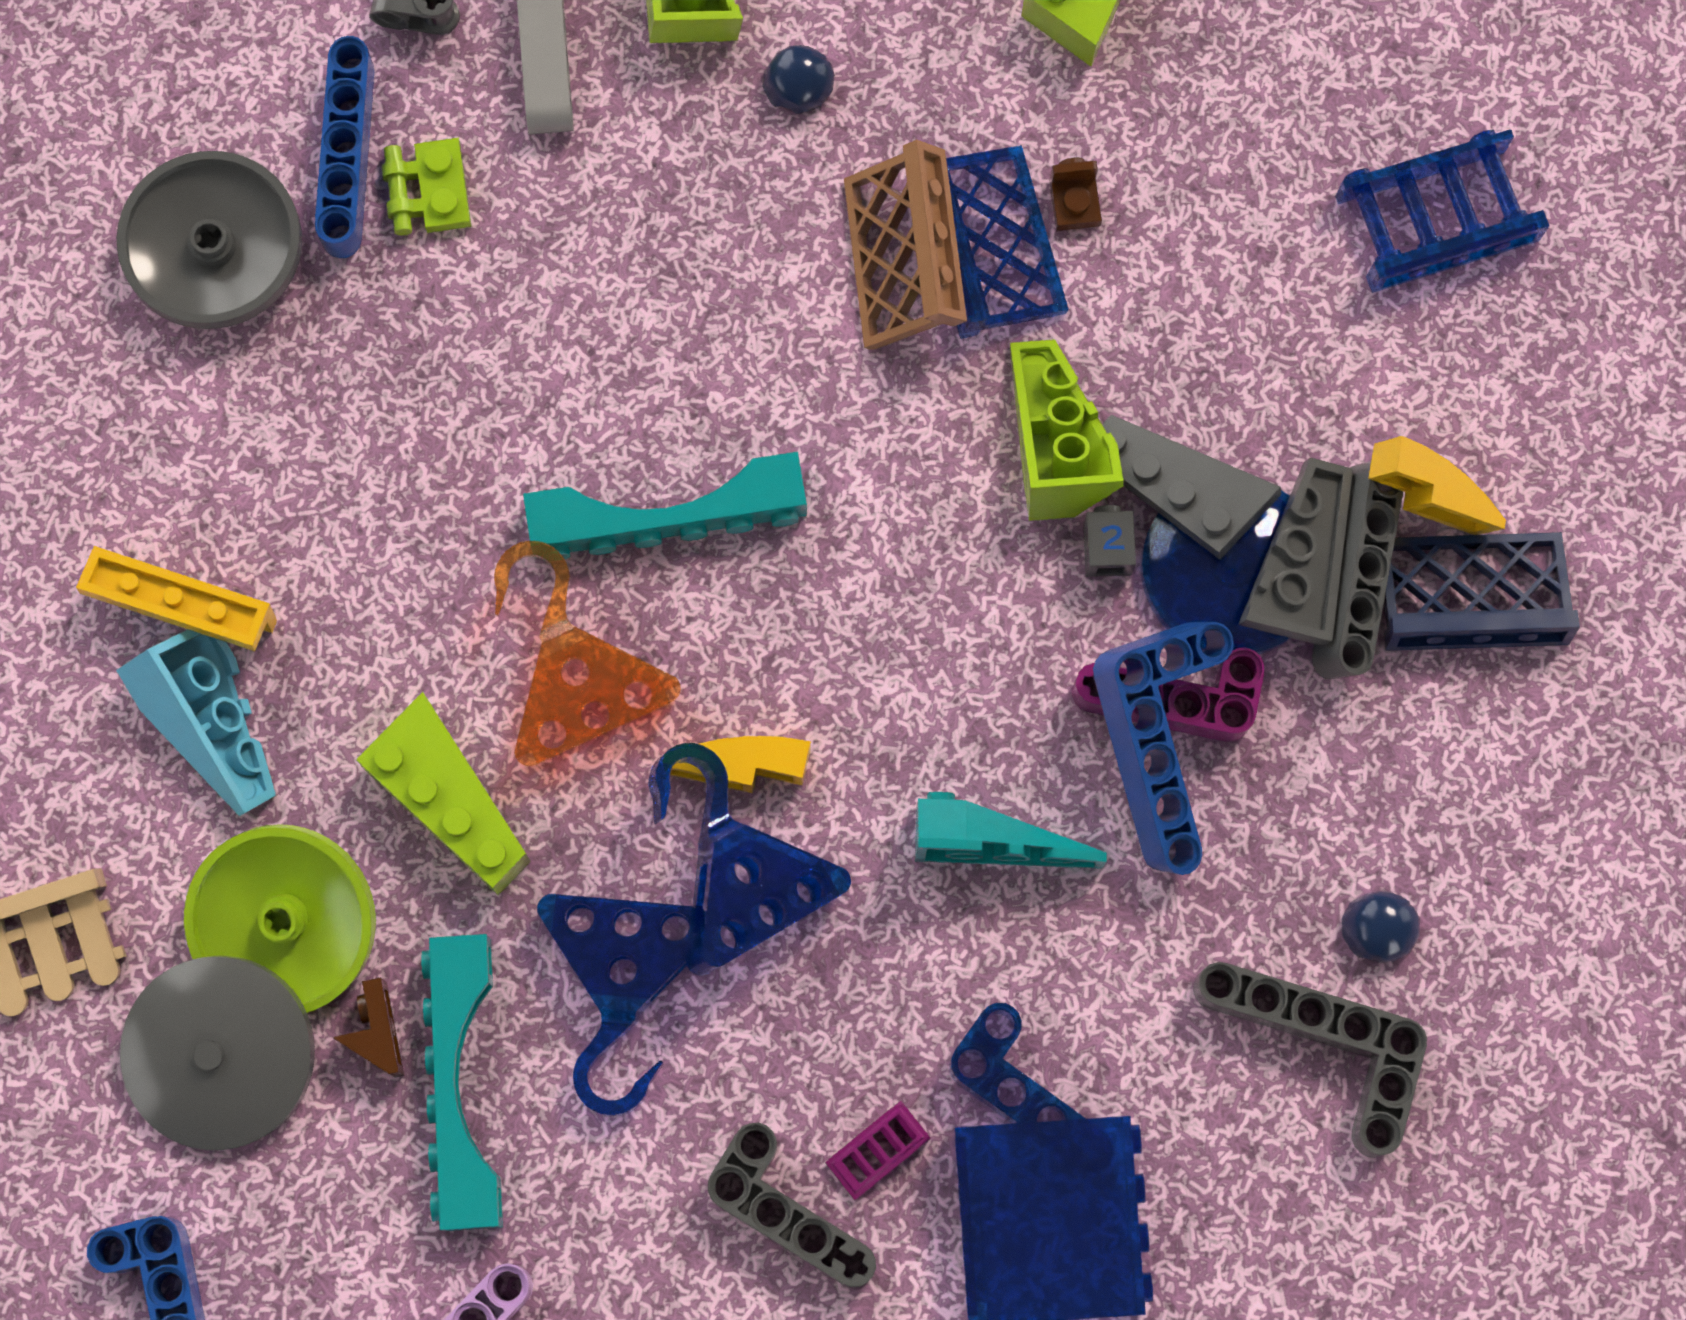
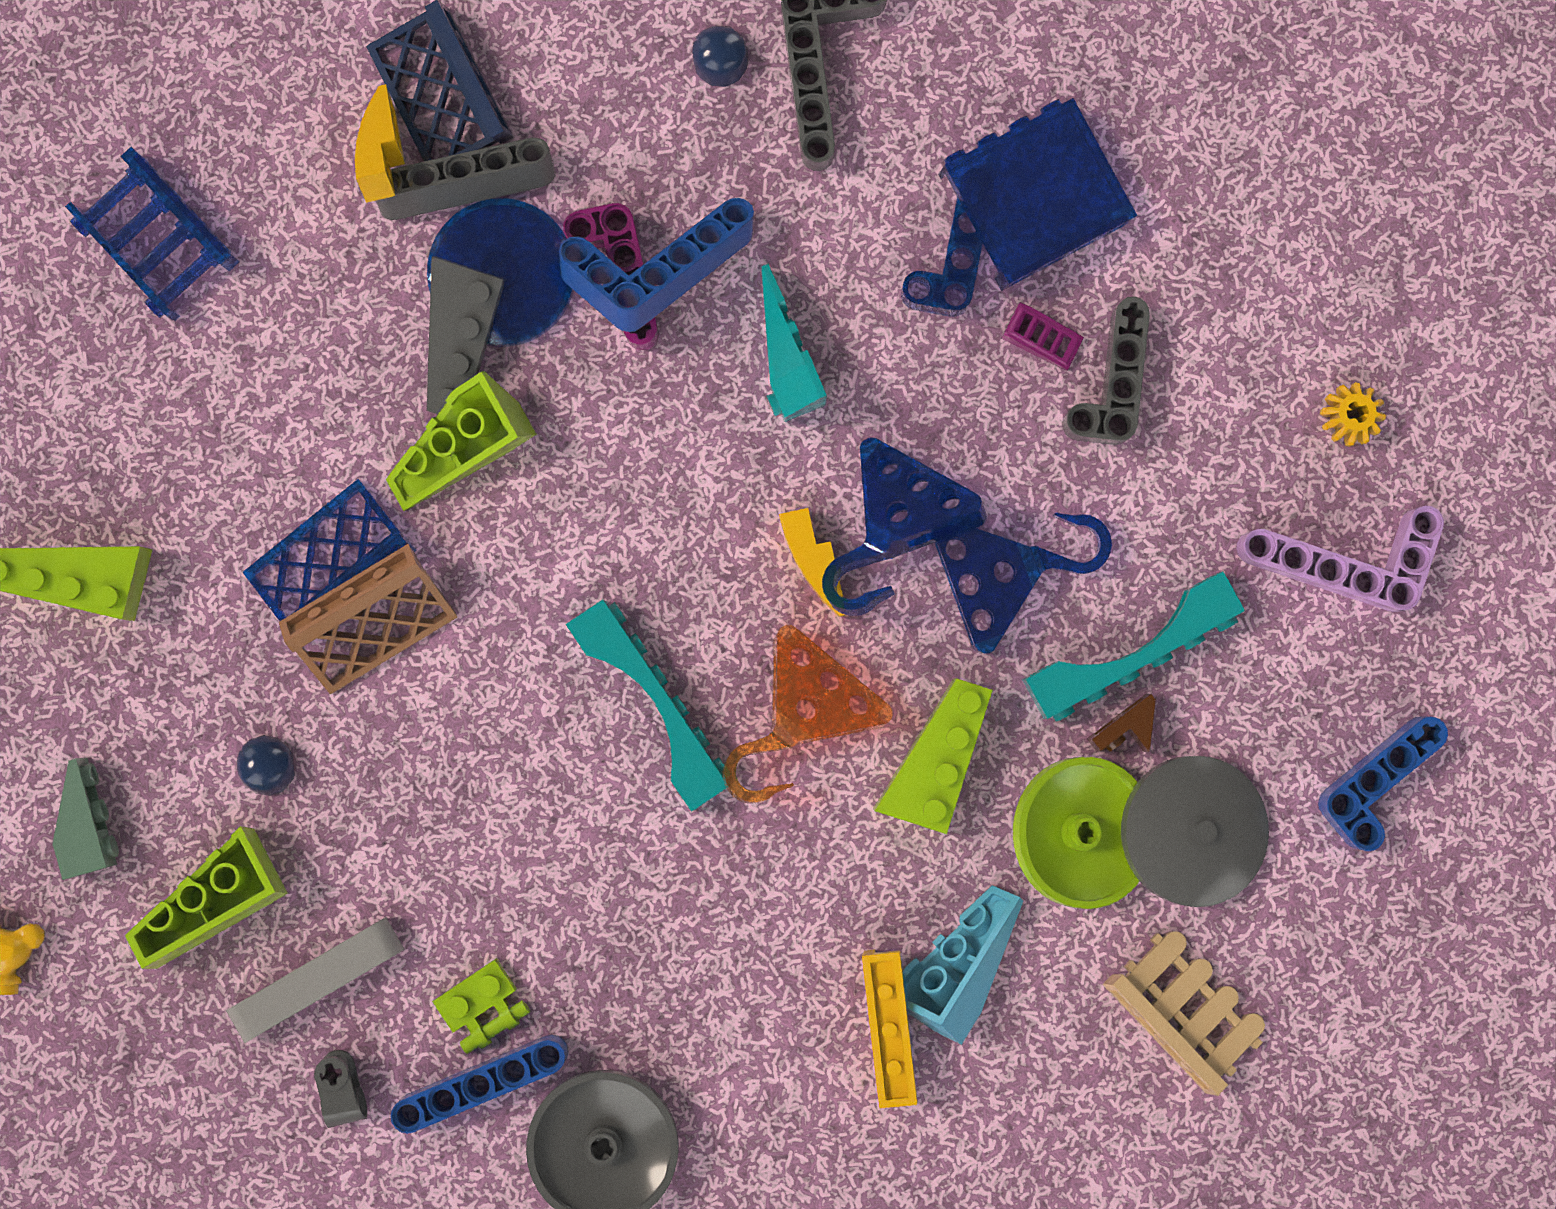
camera: 110 degrees left, 10 degrees up
(1075, 194) = (264, 513): reddish brown bracket -> none
(1109, 542) = (525, 368): dark grey brick -> none
(1303, 564) = (481, 217): dark grey wing -> none

